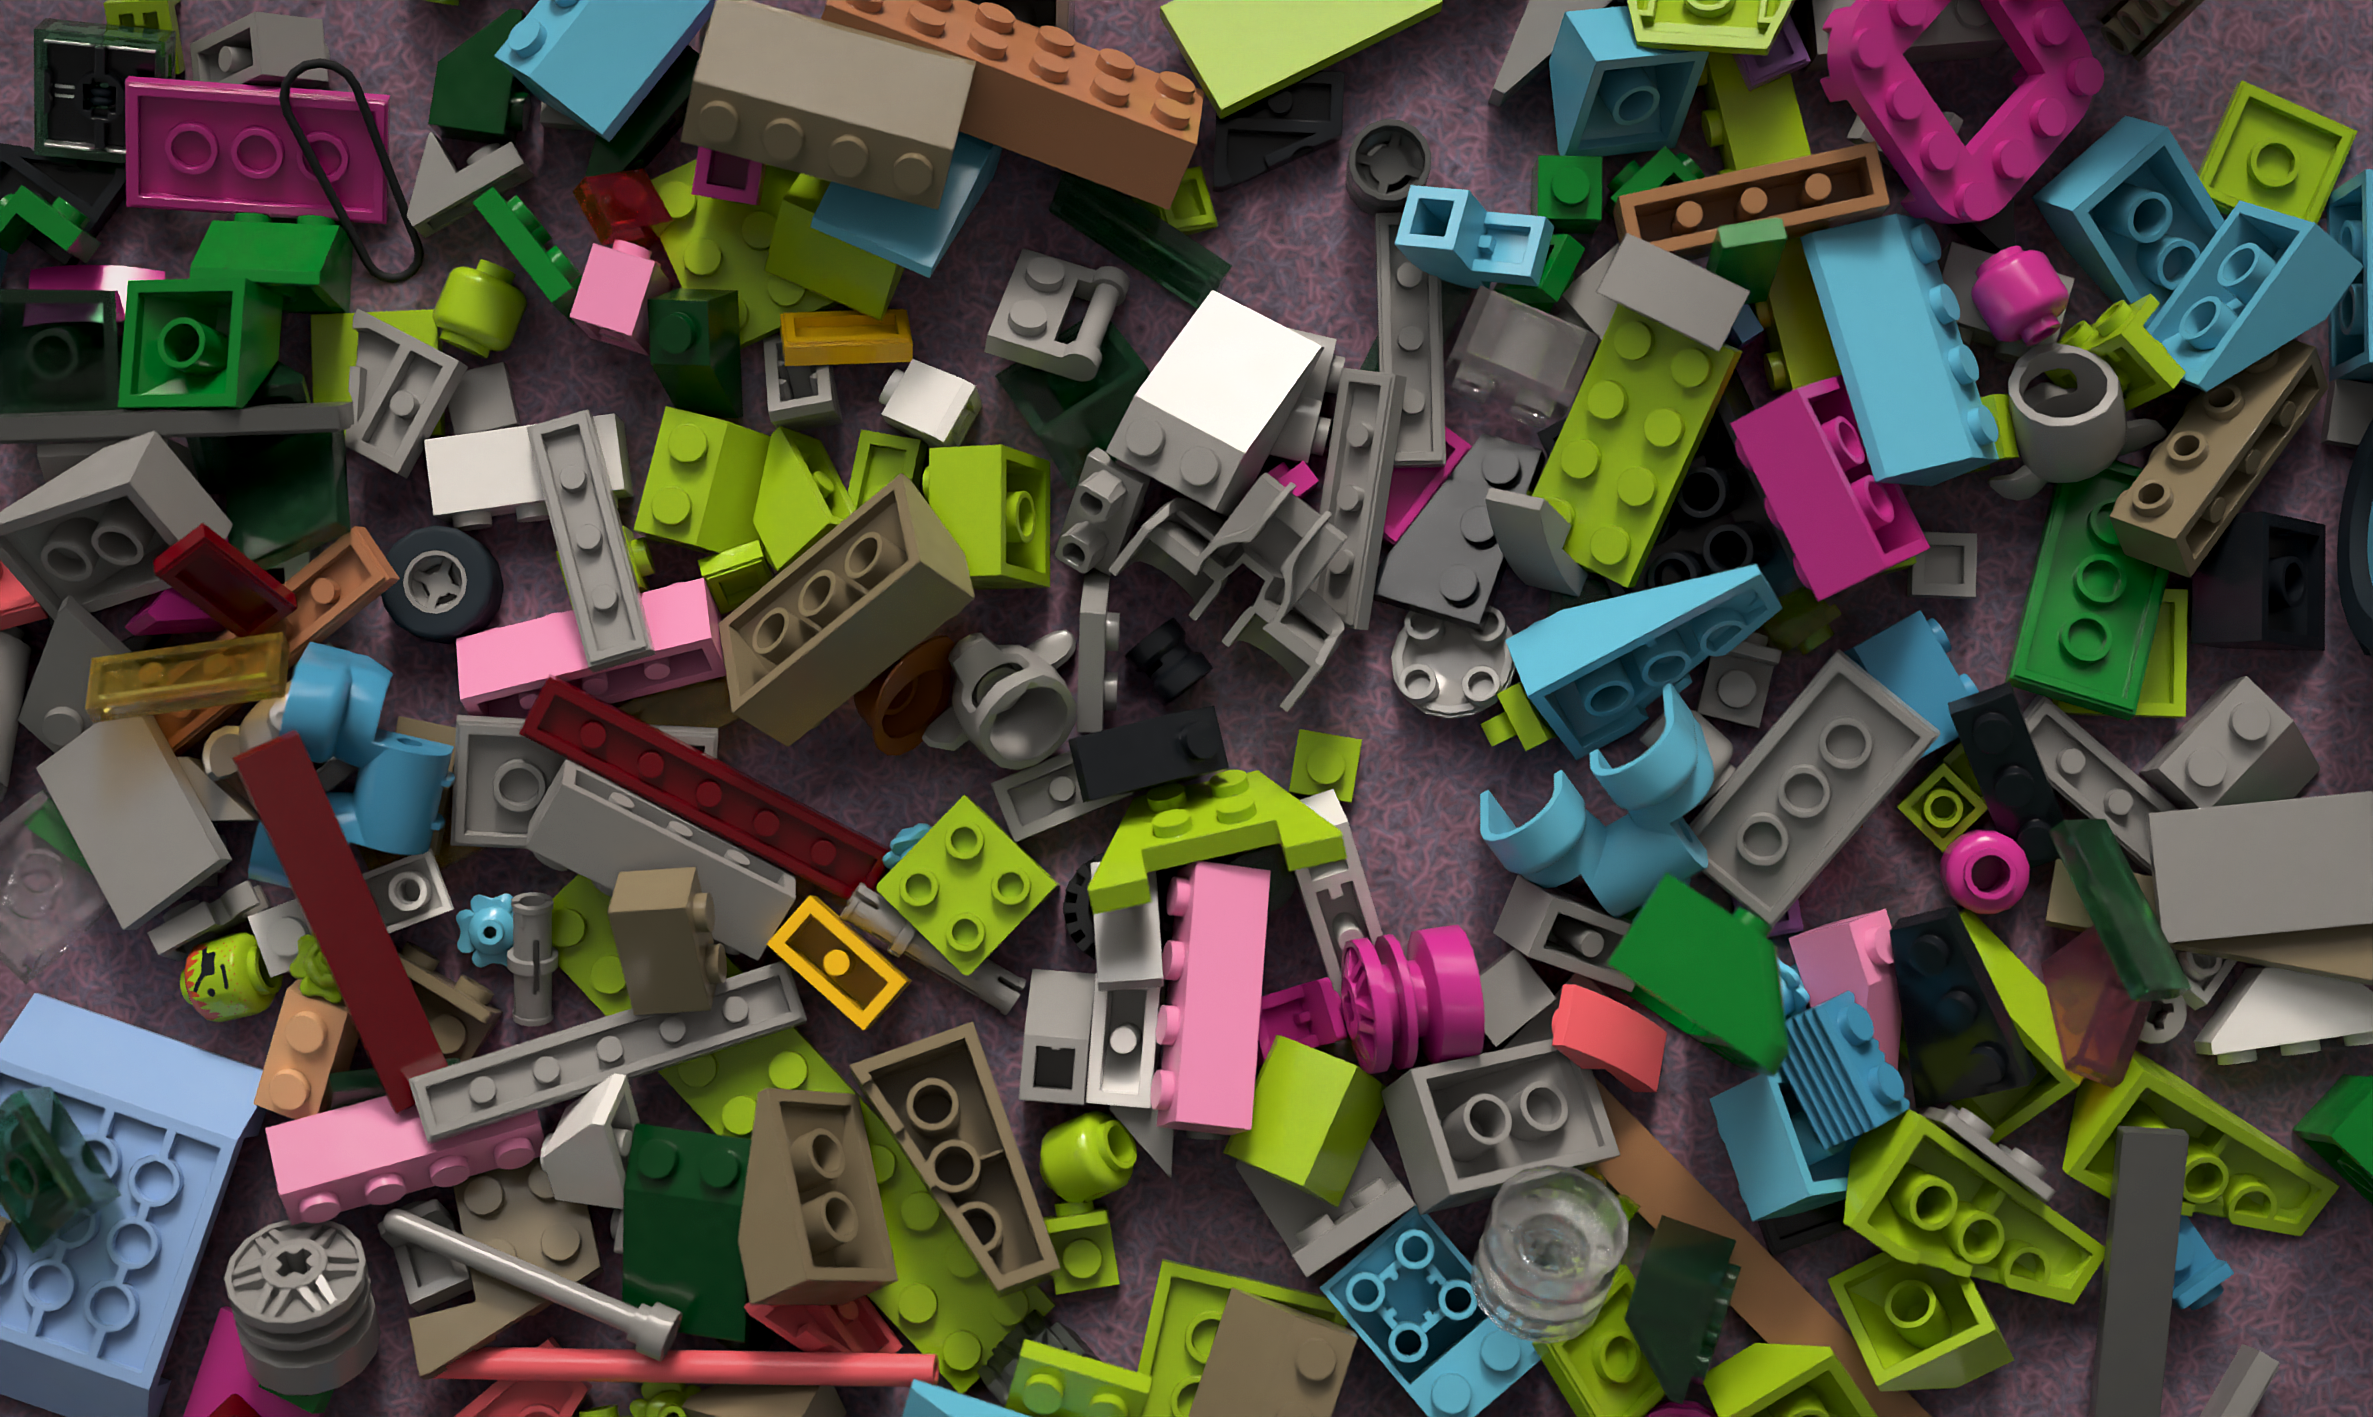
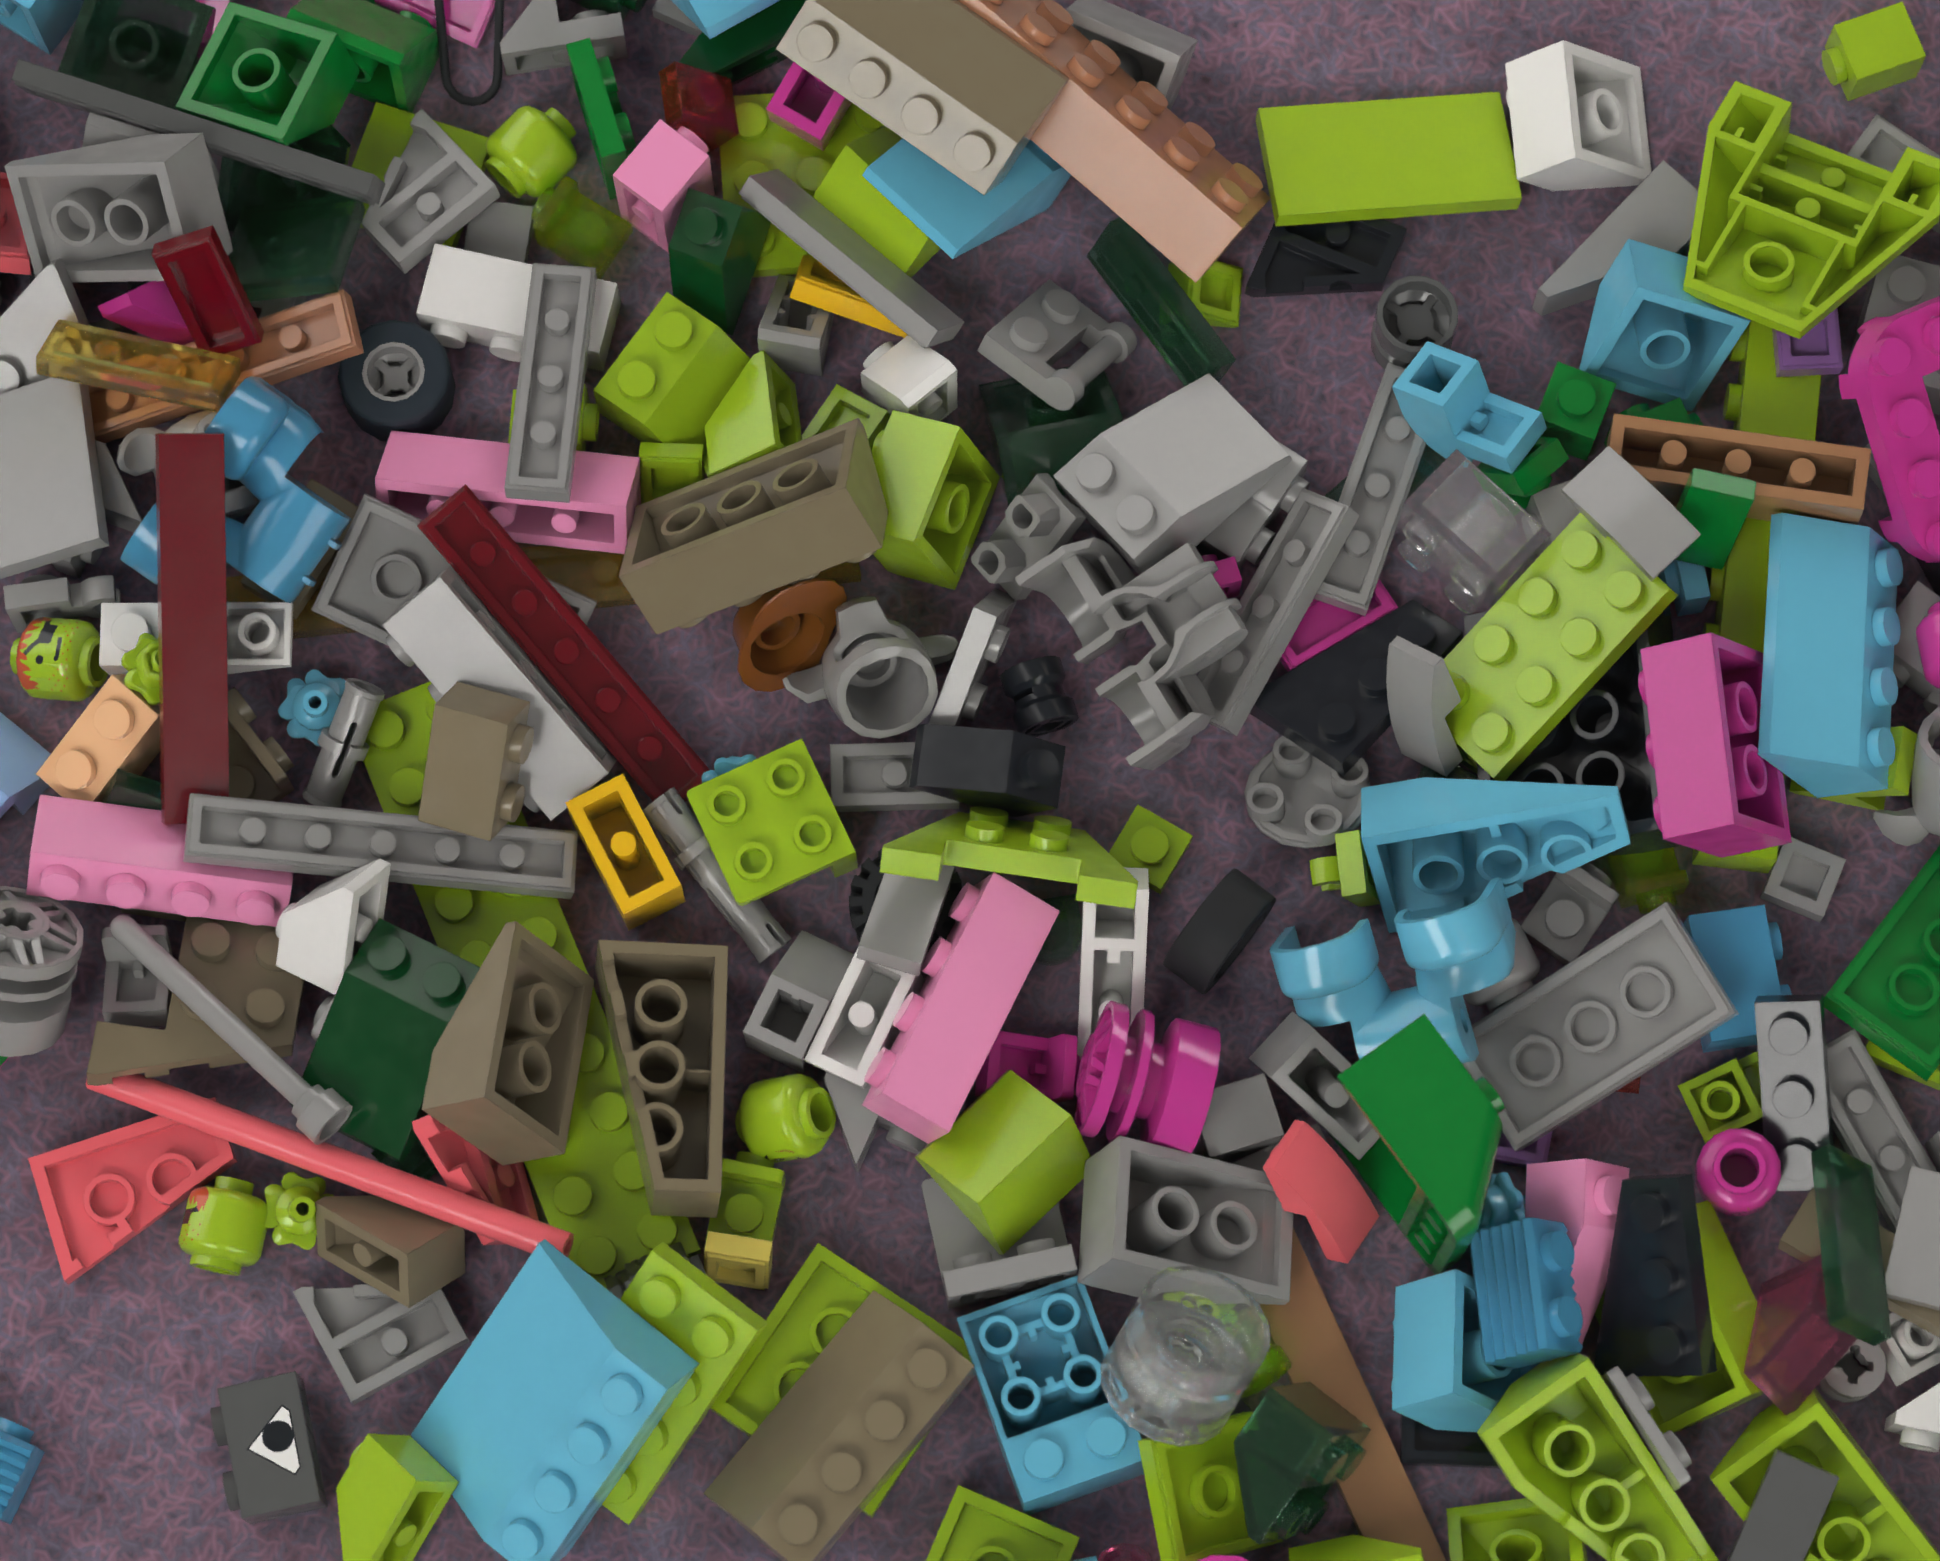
camera: 20 degrees right, 10 degrees down
(555, 366) = (578, 227): none -> clear neon green bracket
(829, 307) = (851, 258): none -> light grey tile
(1094, 1305) = (738, 1260): none -> light yellow tile
(1424, 827) = (1219, 931): none -> black tyre

